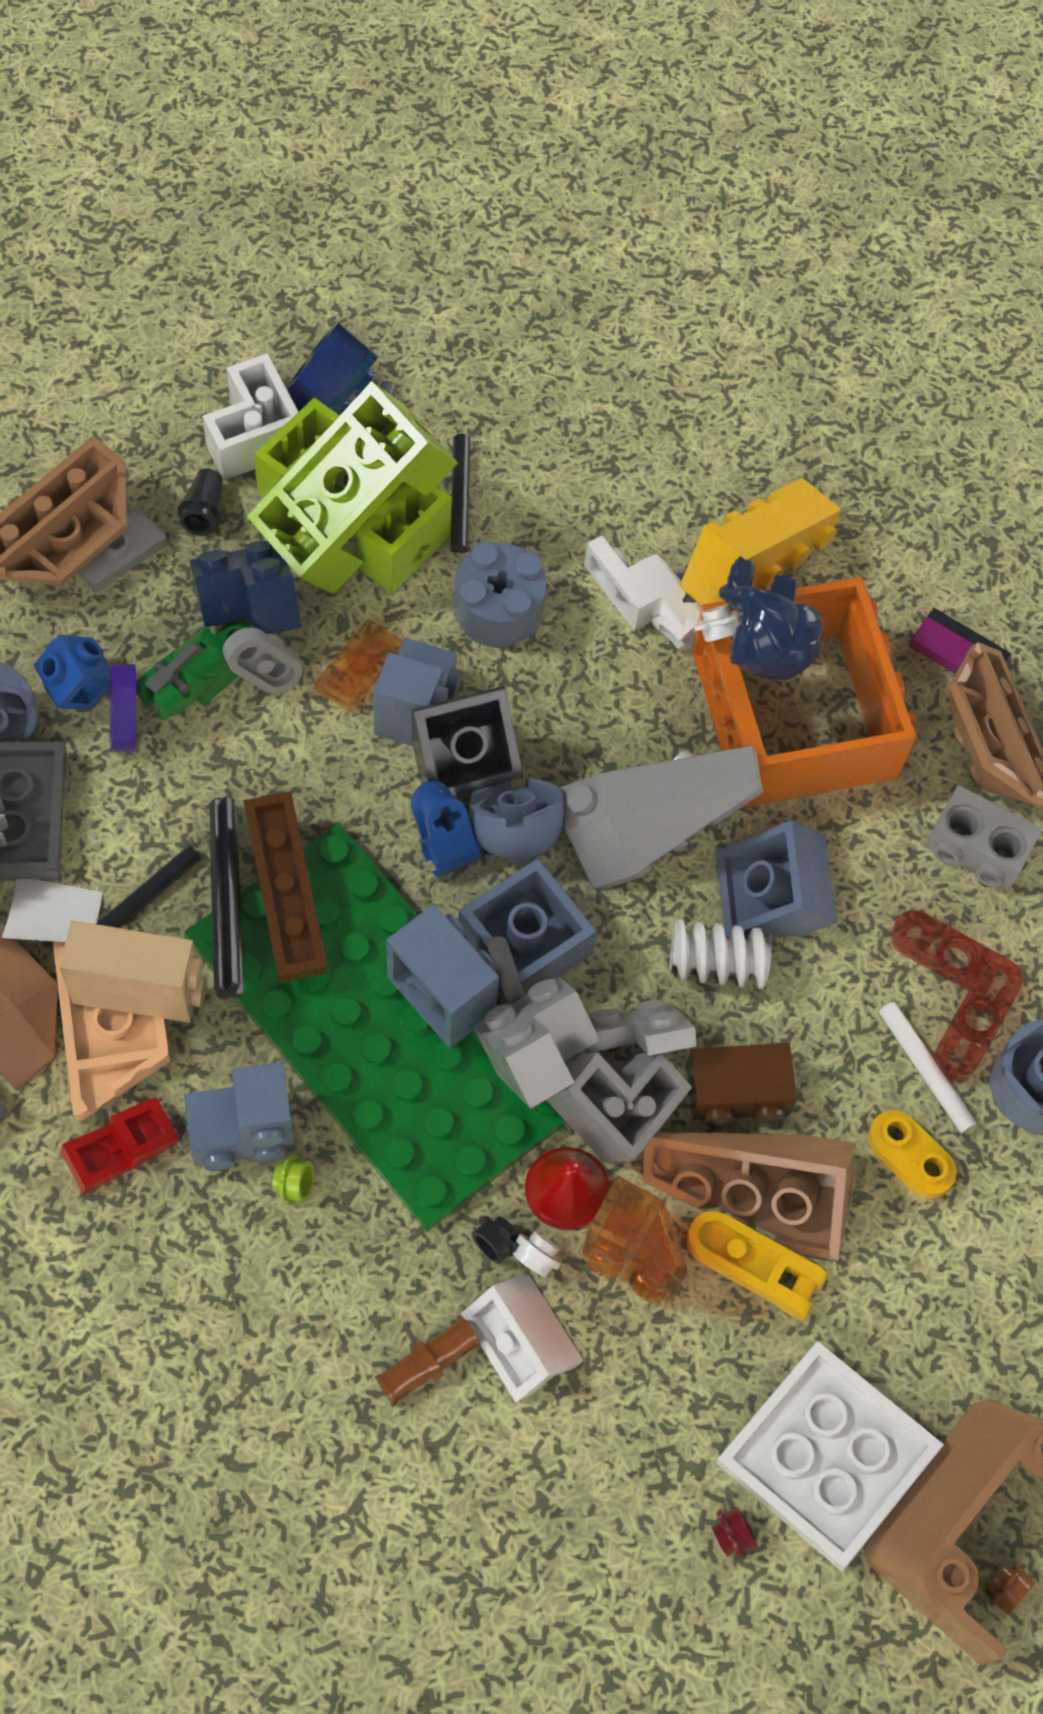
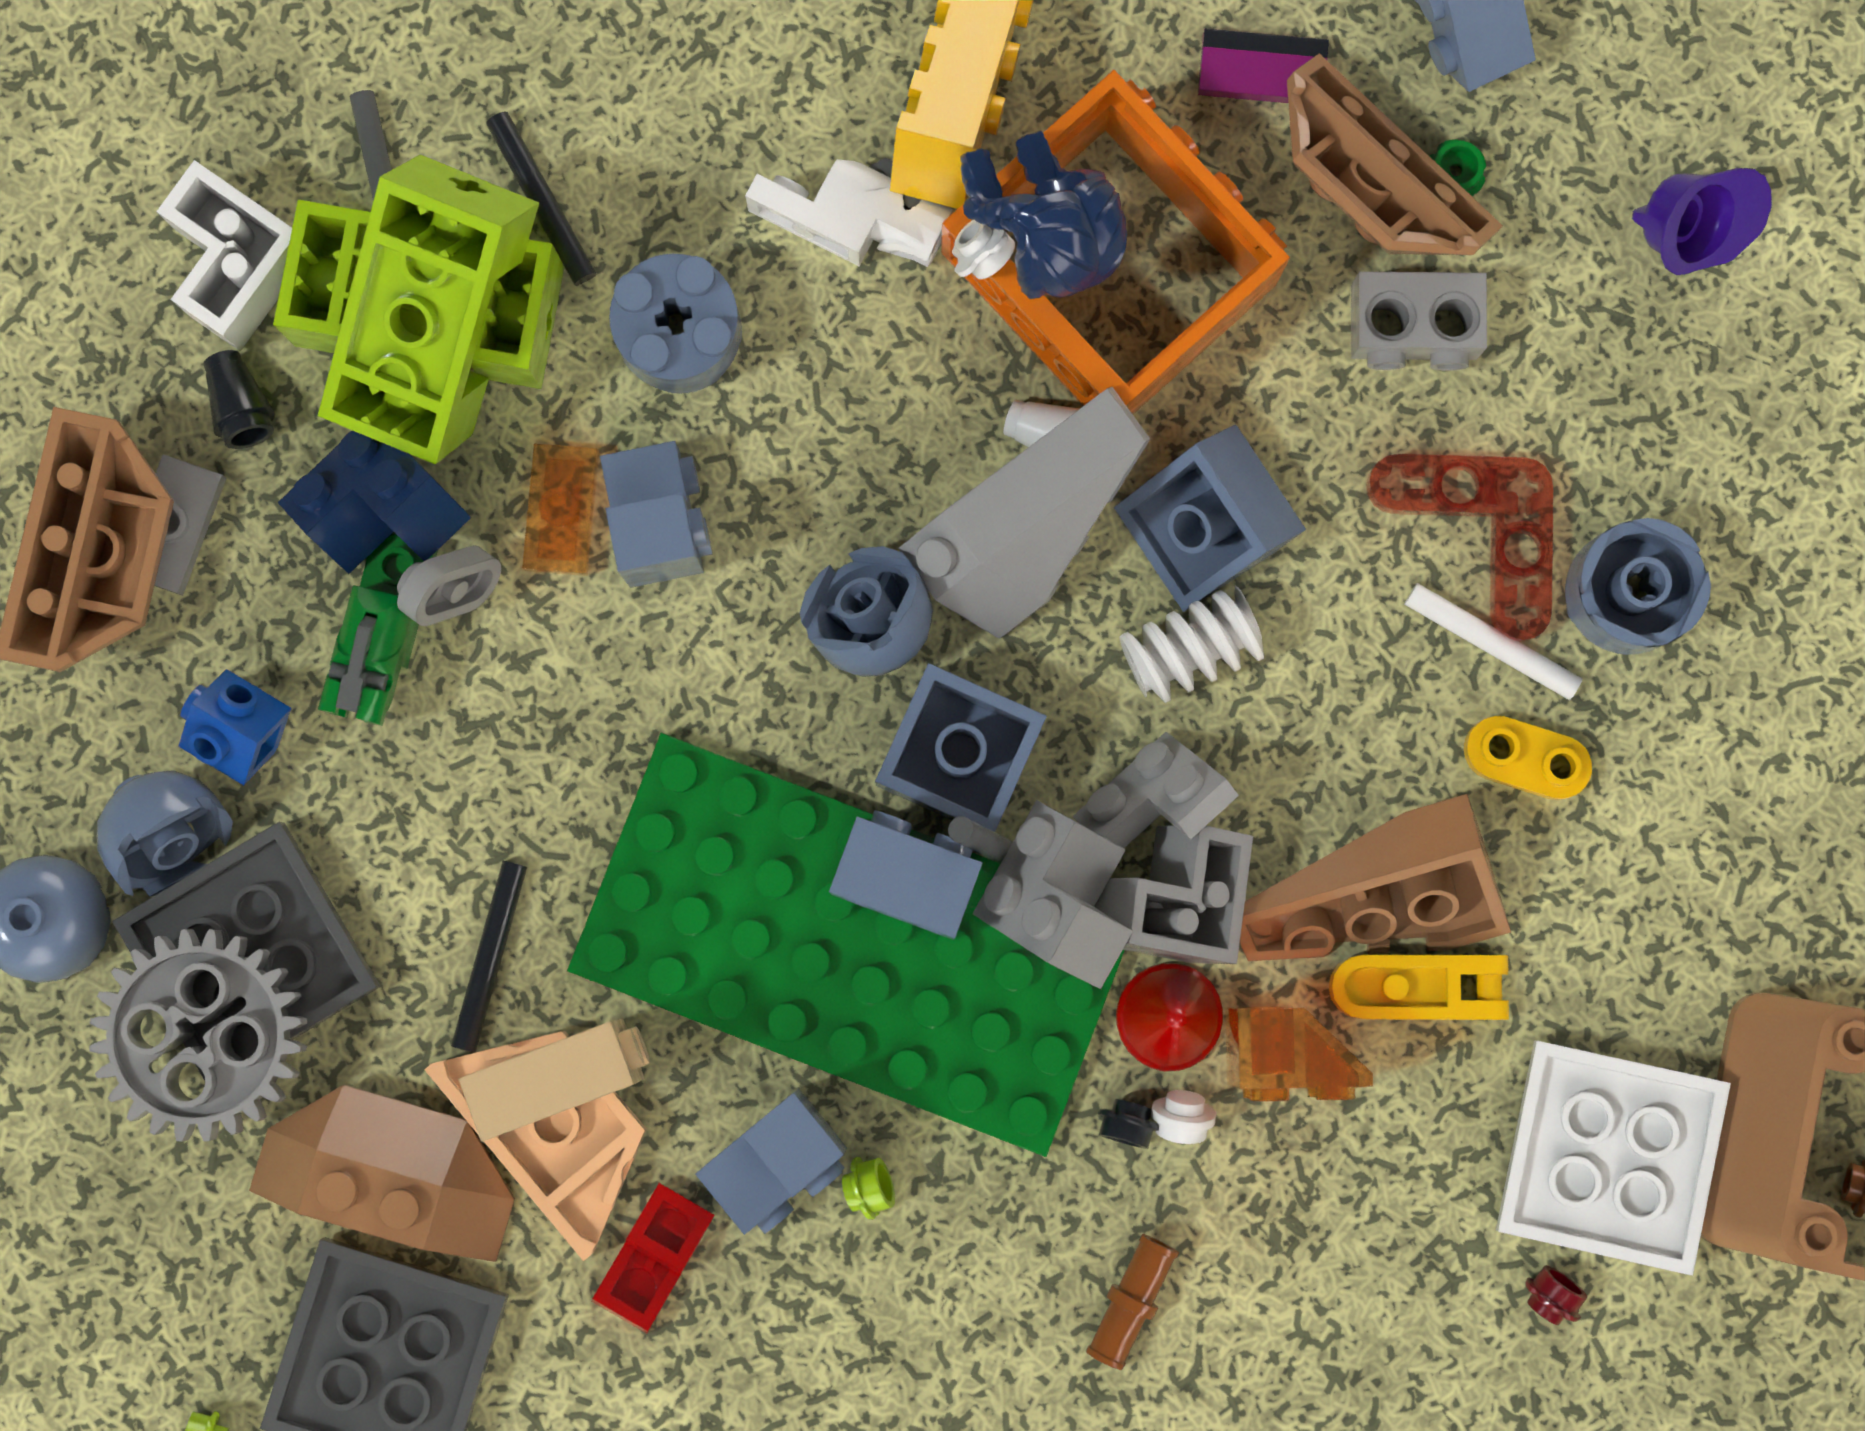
camera: 25 degrees left, 20 degrees up
(46, 909) = (403, 1037): white sticker -> none
(122, 707) = (321, 741): dark purple beam -> none
(225, 899) = (593, 909): black axle -> none
(285, 887) = (654, 859): reddish brown plate -> none
(333, 371) = (285, 131): clear blue brick -> none
(444, 829) = (790, 676): blue piece -> none
(466, 742) = (762, 564): black slope -> none
(521, 1336) = (1217, 1215): white panel -> none
(741, 1083) = (1301, 788): reddish brown brick -> none

